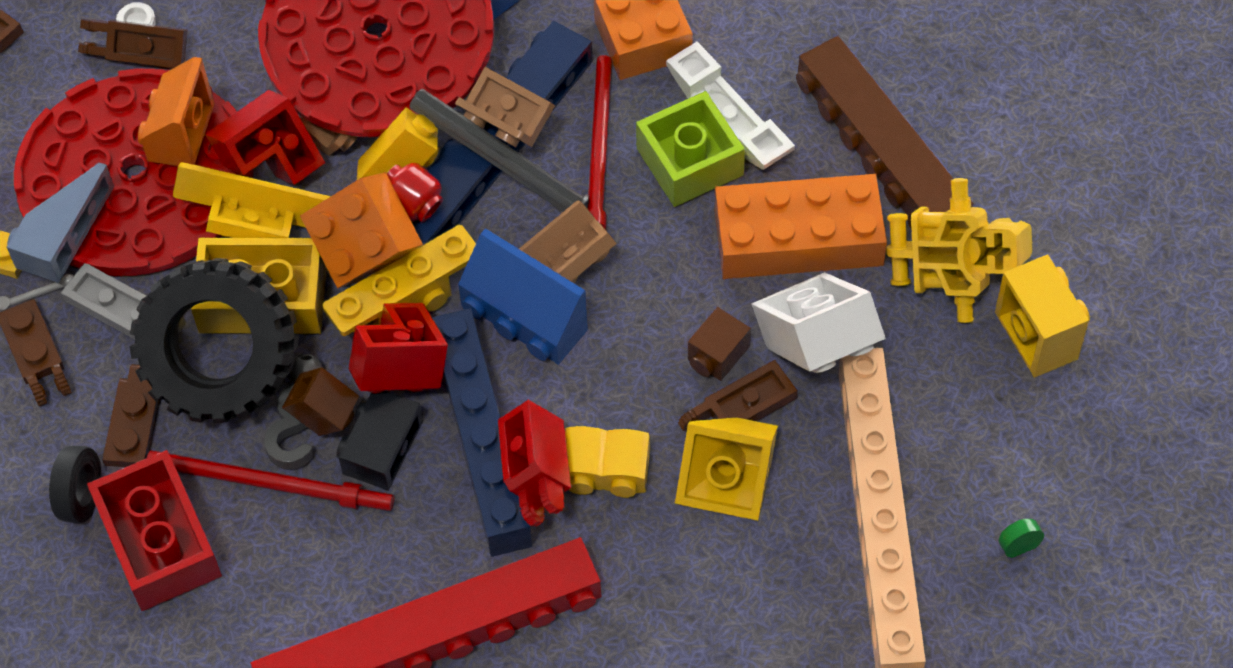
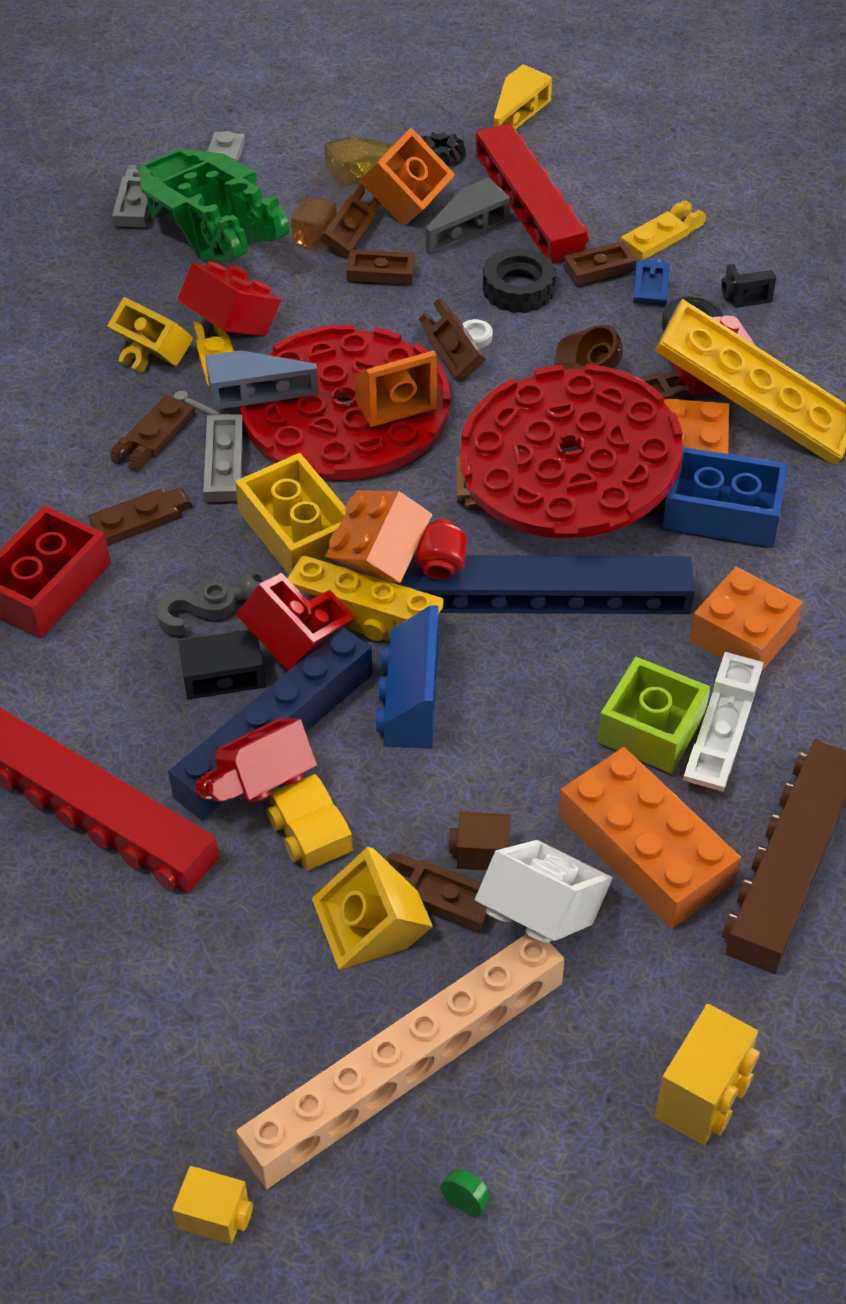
camera: 55 degrees right, 10 degrees down
(68, 483) = (45, 487): black tyre -> none
(171, 374) = (245, 520): black tyre -> none
(243, 204) = (354, 461): yellow bracket -> none
(267, 132) = (426, 438): red brick -> none
(321, 402) = (216, 604): reddish brown brick -> none
(348, 495) = (161, 671): red bar -> none
(406, 141) = (484, 525): yellow brick -> none
(495, 151) = (529, 590): dark grey axle -> none
(508, 107) = (569, 565): medium nougat bracket -> none
(570, 242) = (485, 682): medium nougat bracket -> none
(599, 139) = (539, 693): red bar -> none
(956, 249) = (716, 965): yellow piece -> none

